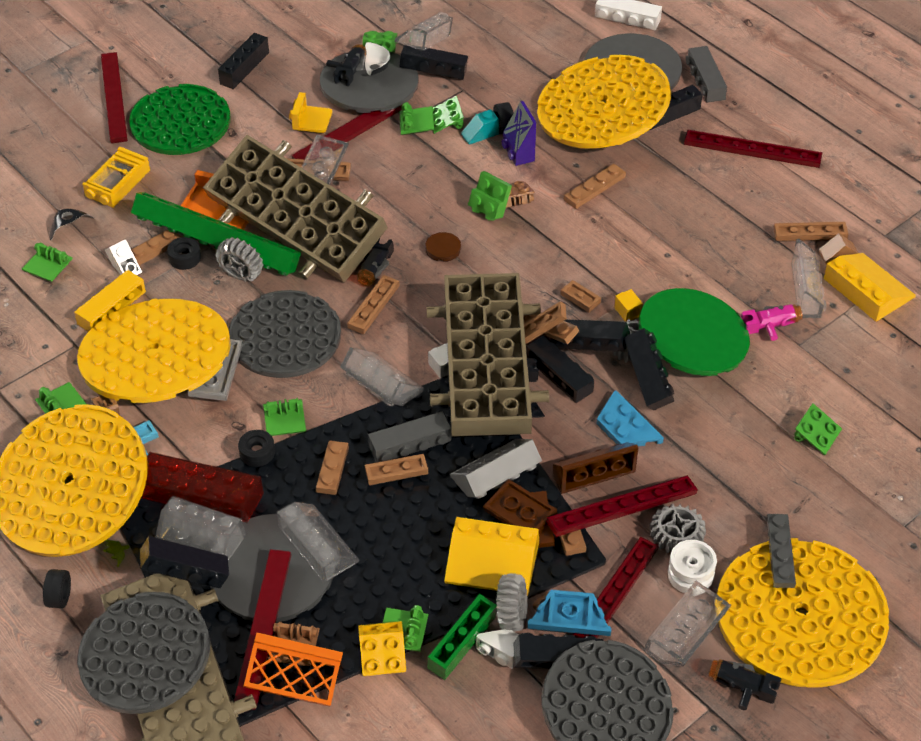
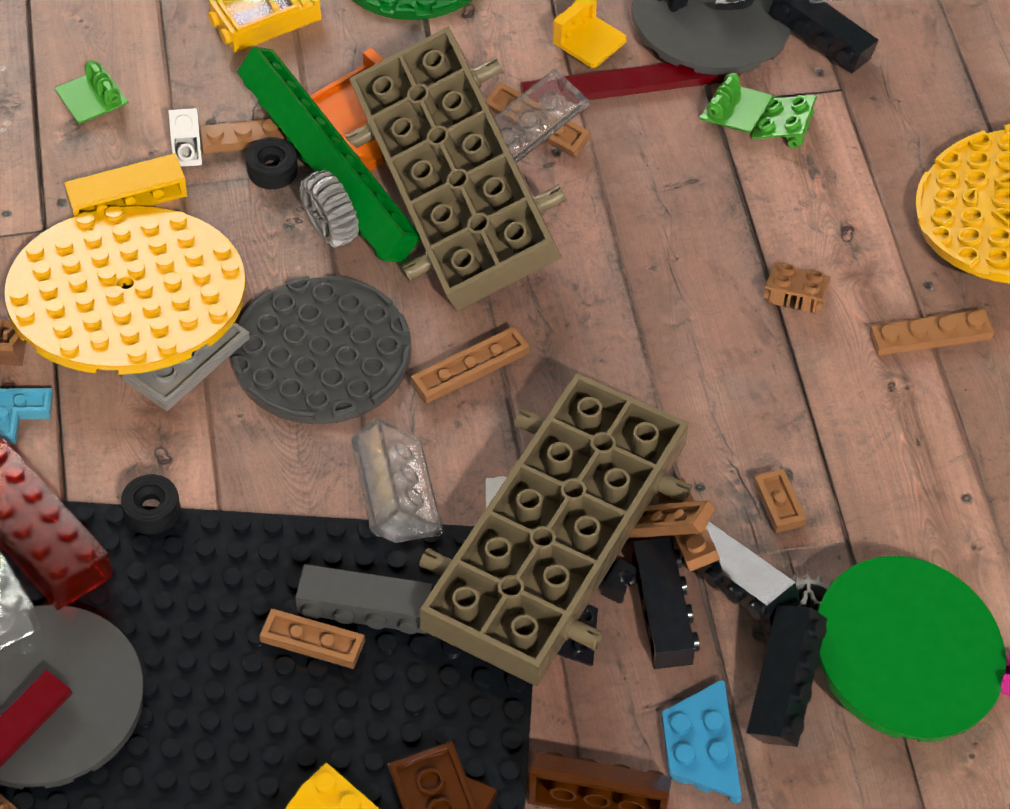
camera: 30 degrees right, 5 degrees up
(58, 221) = (172, 40): black piece -> none
(284, 417) = (227, 476): bright green hinge -> none
(316, 540) = (122, 688): clear slope -> none
(332, 467) = (231, 587): medium nougat plate -> none
(375, 262) = (518, 301): black piece -> none
(443, 246) = (634, 322): reddish brown tile -> none
(481, 127) = (821, 161): teal slope -> none
(490, 196) = (750, 277): bright green plate -> none
(497, 467) = (452, 713): light grey slope -> none
(504, 113) = (862, 161): black tyre -> none
(520, 136) = (860, 204): dark purple slope -> none
(628, 305) = (839, 550): yellow brick -> none

